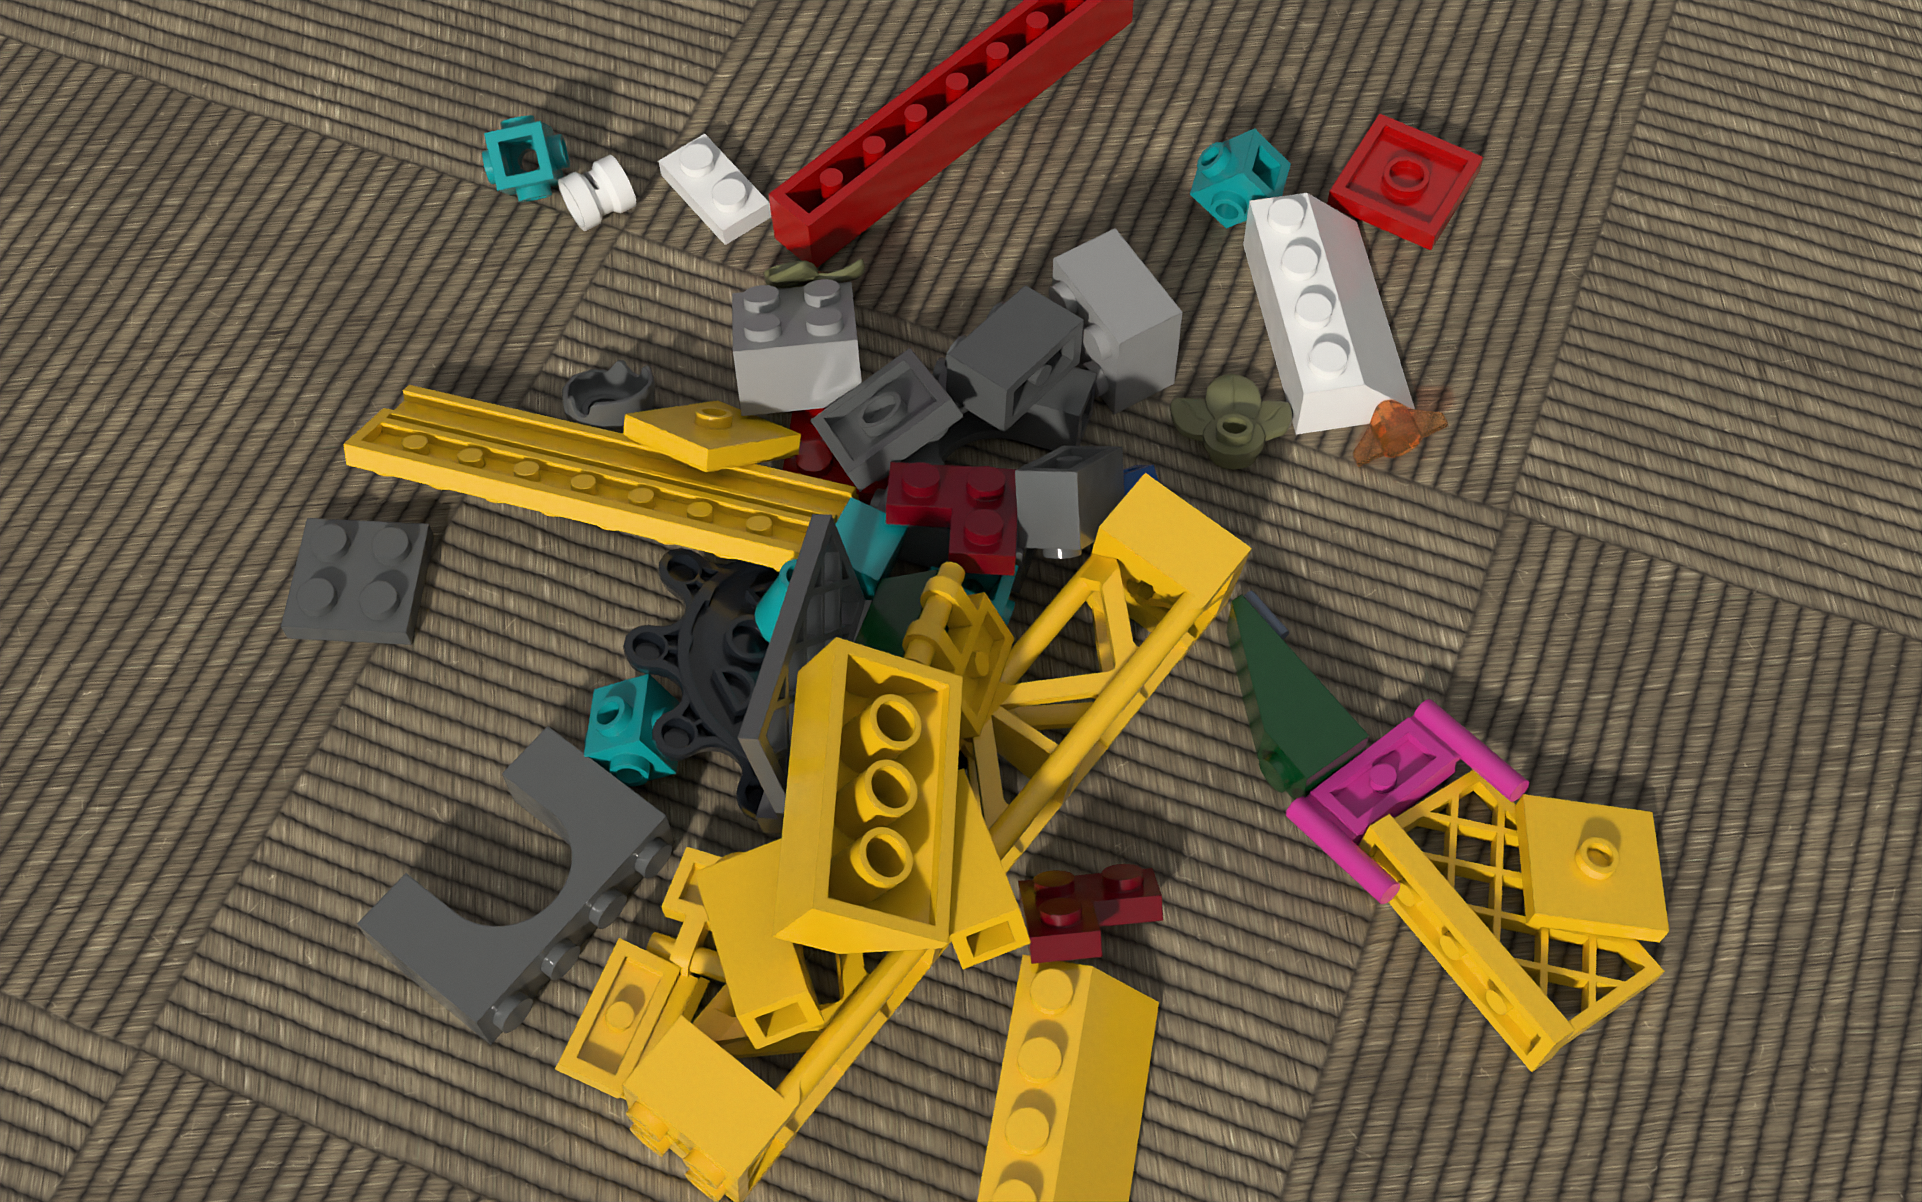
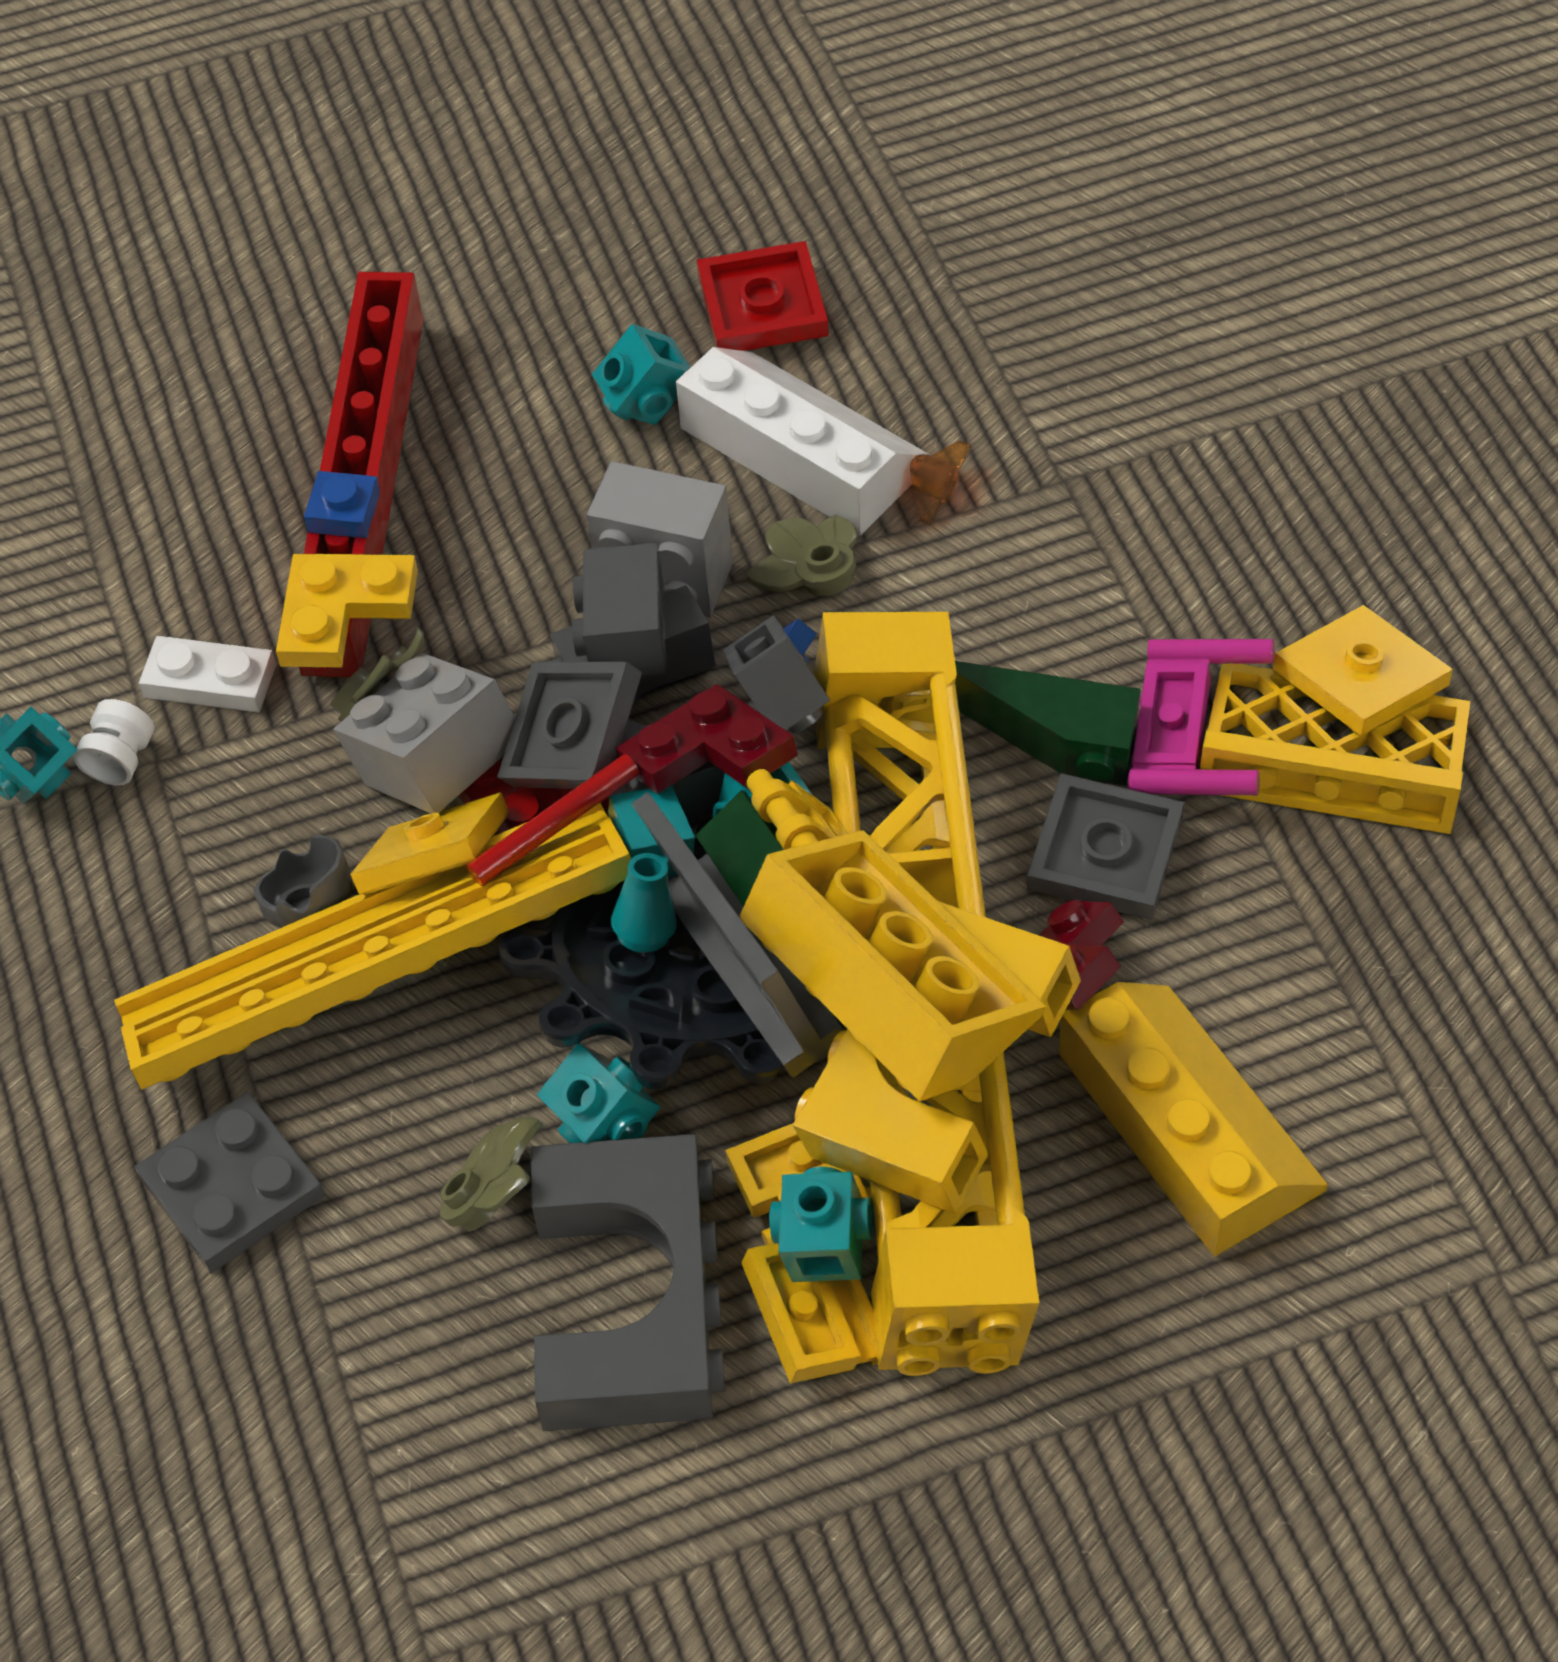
camera: 40 degrees left, 5 degrees down
(496, 730) = (489, 1175): none -> olive plate
(671, 966) = (821, 1225): none -> teal brick
(790, 483) = (553, 819): none -> red bar
(814, 184) = (331, 590): none -> yellow plate
(896, 121) = (342, 504): none -> blue plate
(1222, 844) = (1105, 845): none -> dark grey plate

